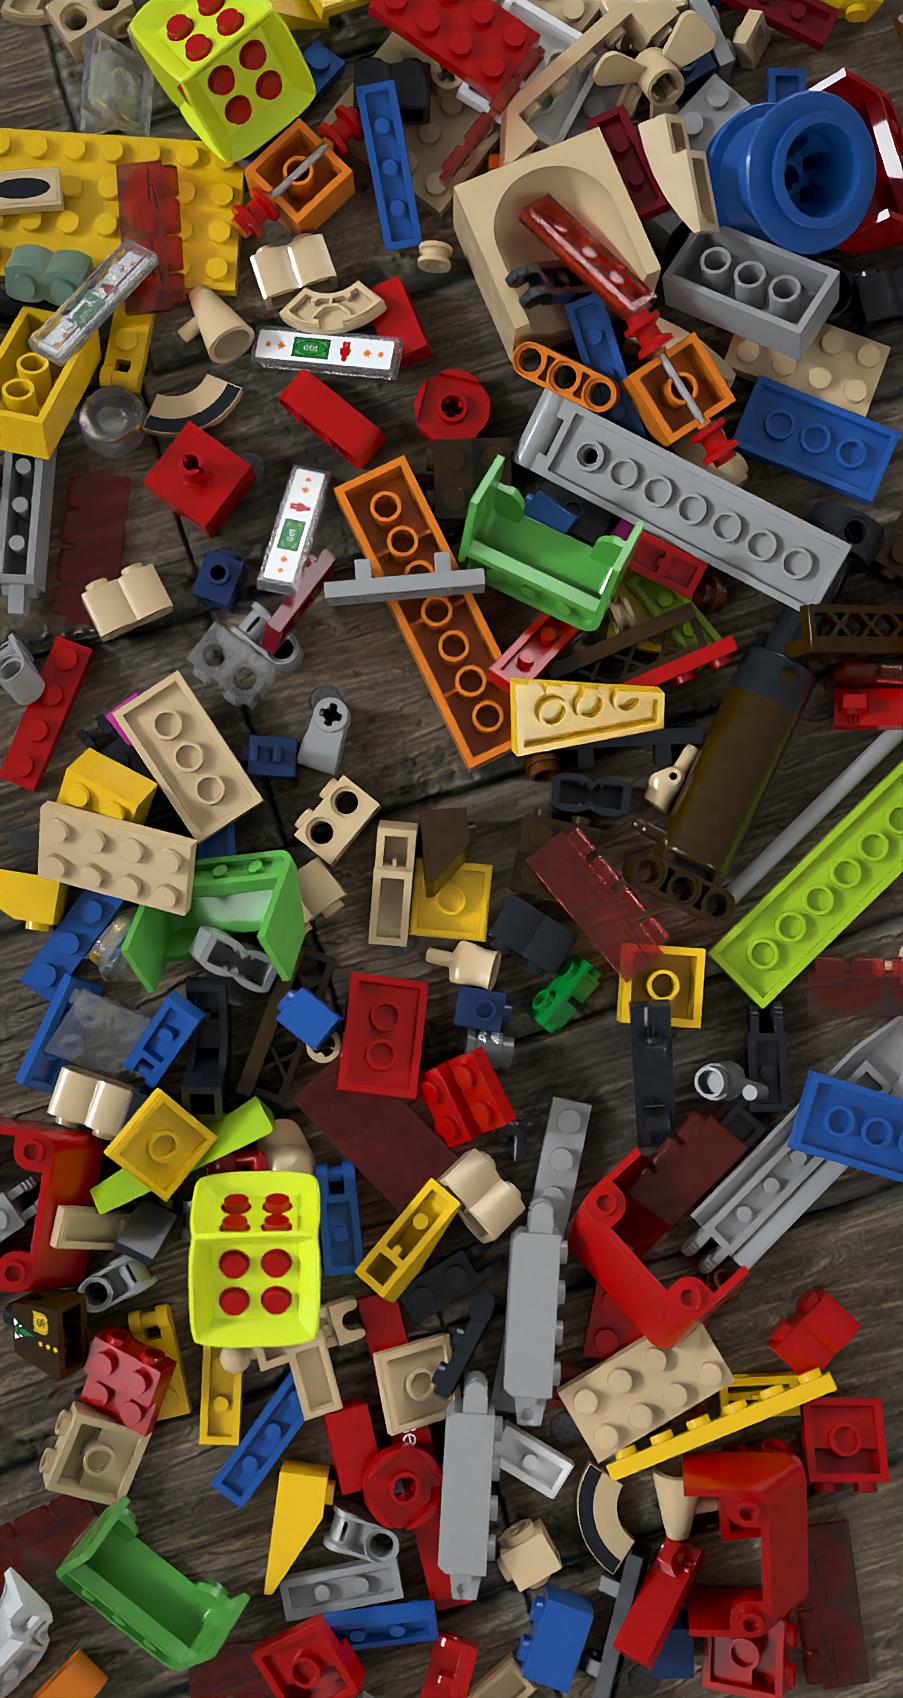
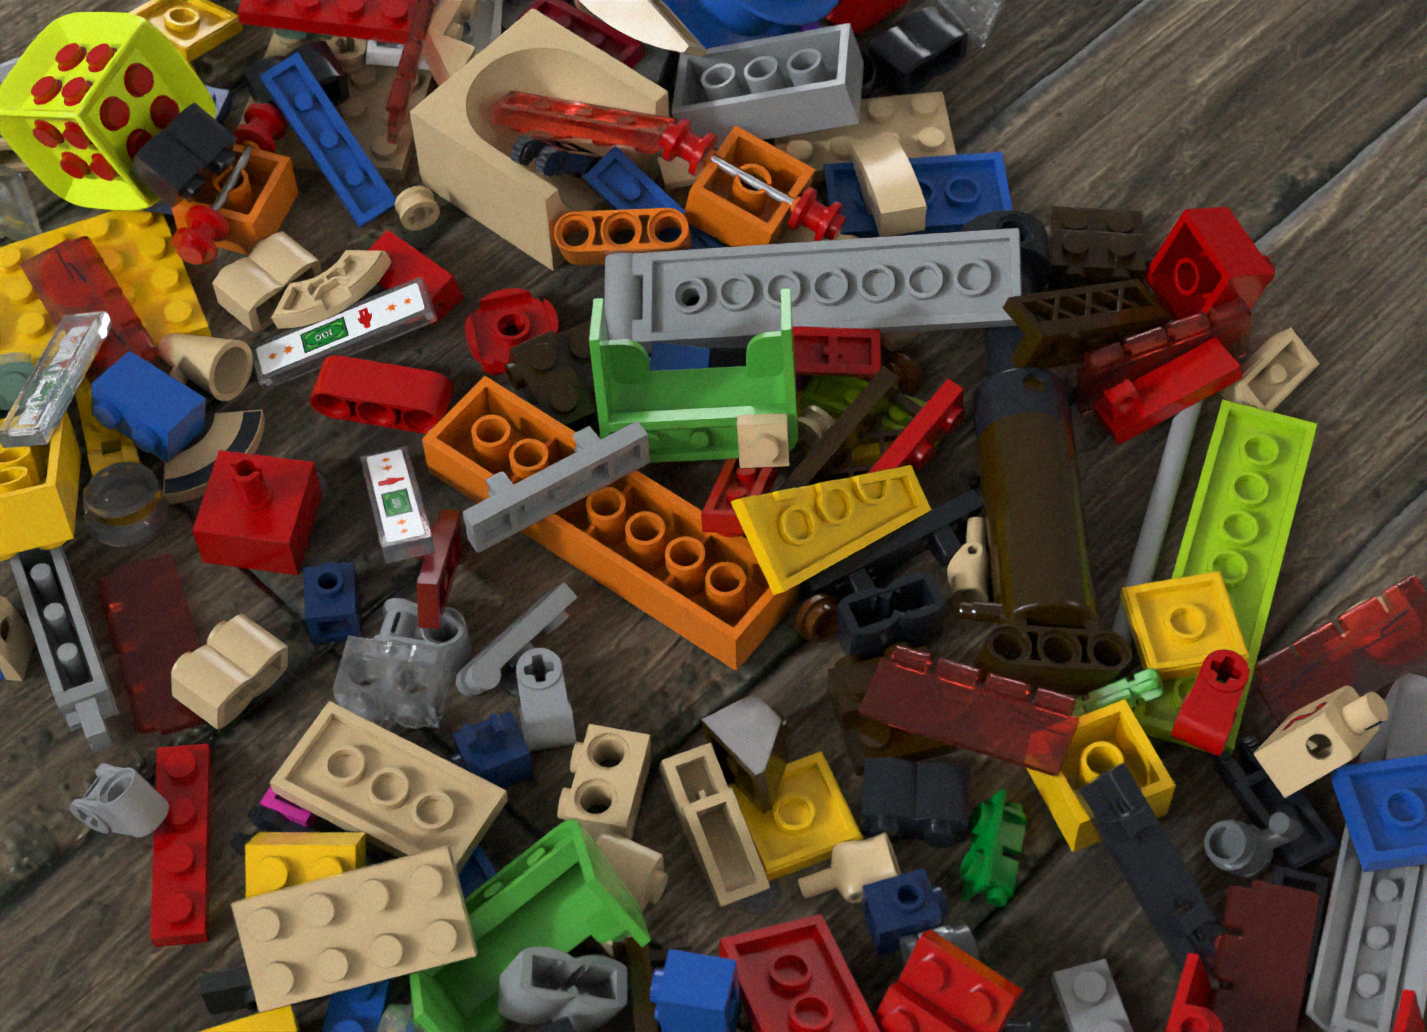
camera: 25 degrees left, 30 degrees down
(155, 352) = (148, 406): none -> blue brick
(266, 139) = (184, 155): none -> black brick
(329, 676) = (544, 614): none -> light grey plate
(570, 620) = (763, 440): none -> tan plate
(705, 932) = (1145, 685): none -> bright green axle
(758, 984) = (1211, 705): none -> red piece
(785, 905) = (1181, 623): none -> yellow tile
(793, 424) = (888, 185): none -> tan slope
(818, 1043) = (1332, 728): none -> tan torso

